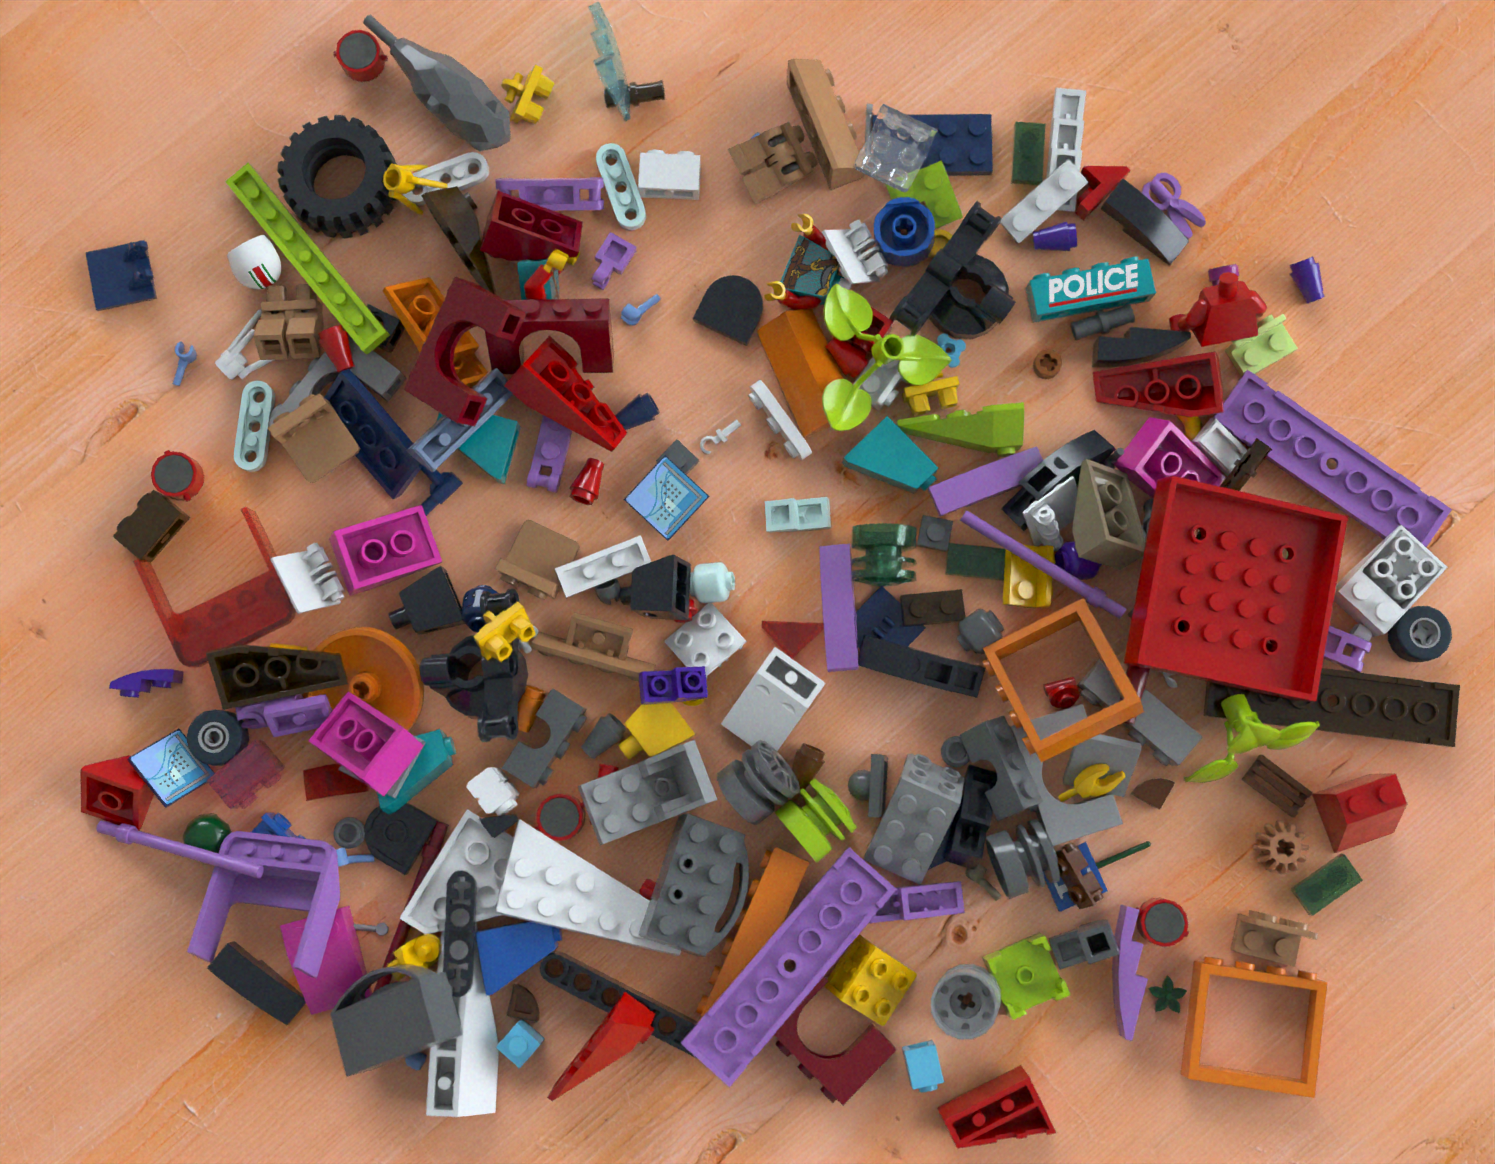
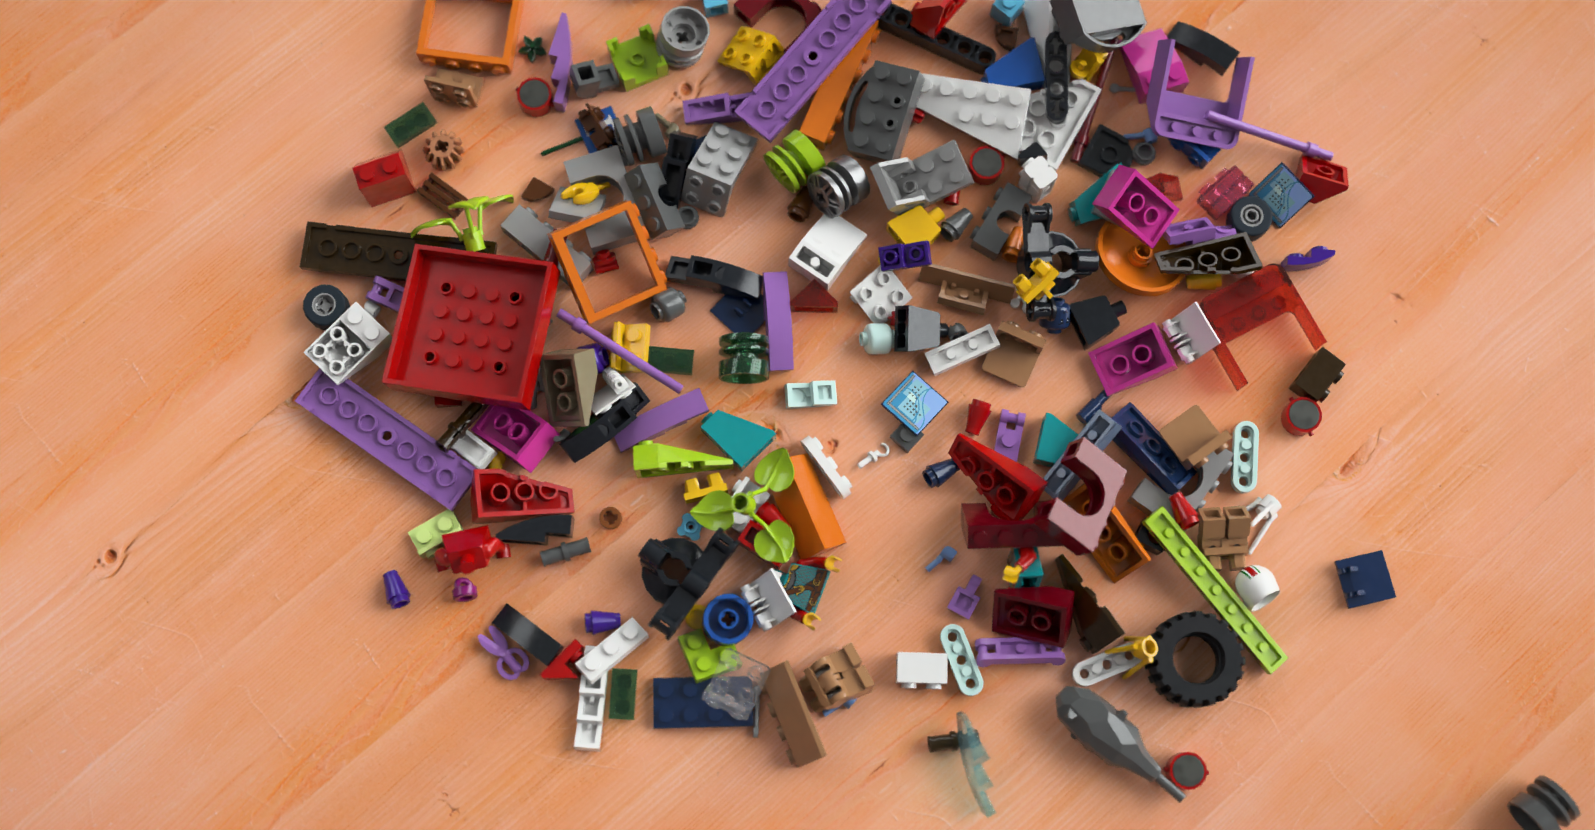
camera: 175 degrees right, 5 degrees down
(184, 360) = (1307, 509): medium blue hand -> none
(206, 832) = (1250, 150): dark green hair -> none
(536, 84) = (1046, 727): yellow hips -> none
(731, 308) = (867, 560): black tile -> none
(871, 785) = (751, 190): dark grey tile -> none
(932, 608) = (704, 324): dark brown plate -> none
(934, 533) = (704, 380): dark grey plate -> none
(1090, 289) = (574, 576): teal brick -> none

